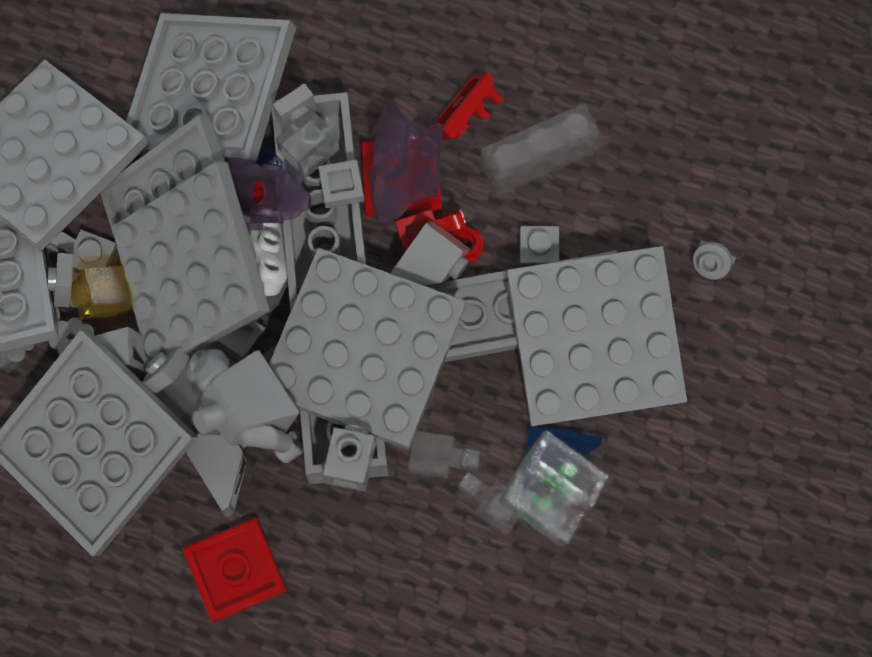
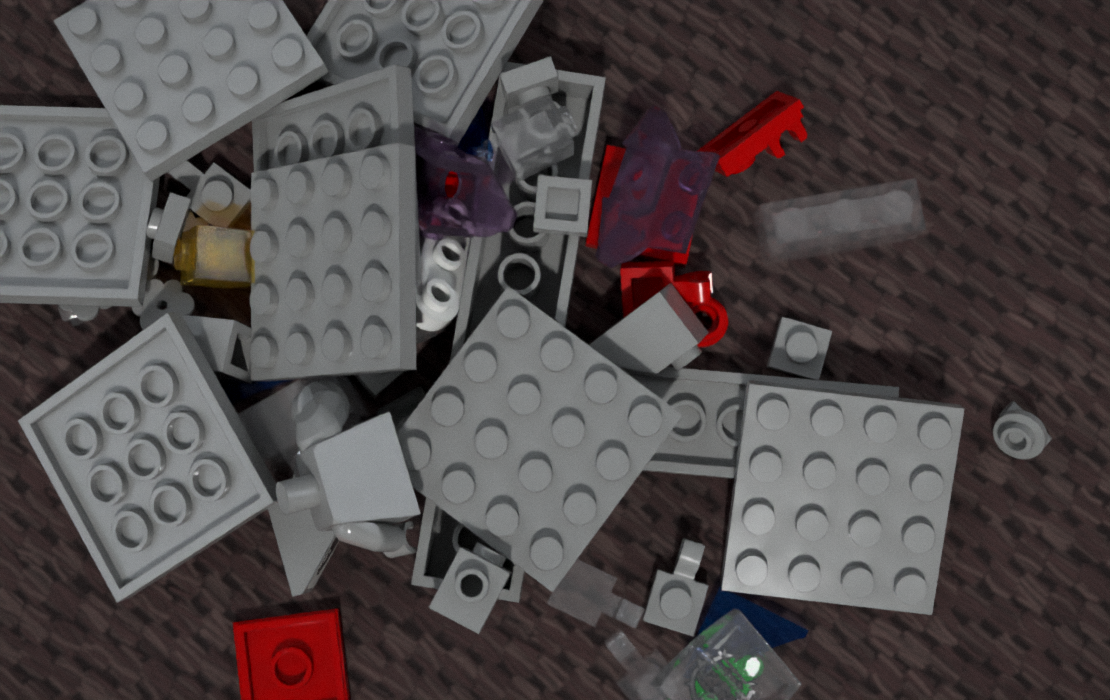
camera: 15 degrees right, 10 degrees up
(164, 369) = (265, 394): light grey plate -> none
(501, 441) = (676, 596): none -> light grey plate

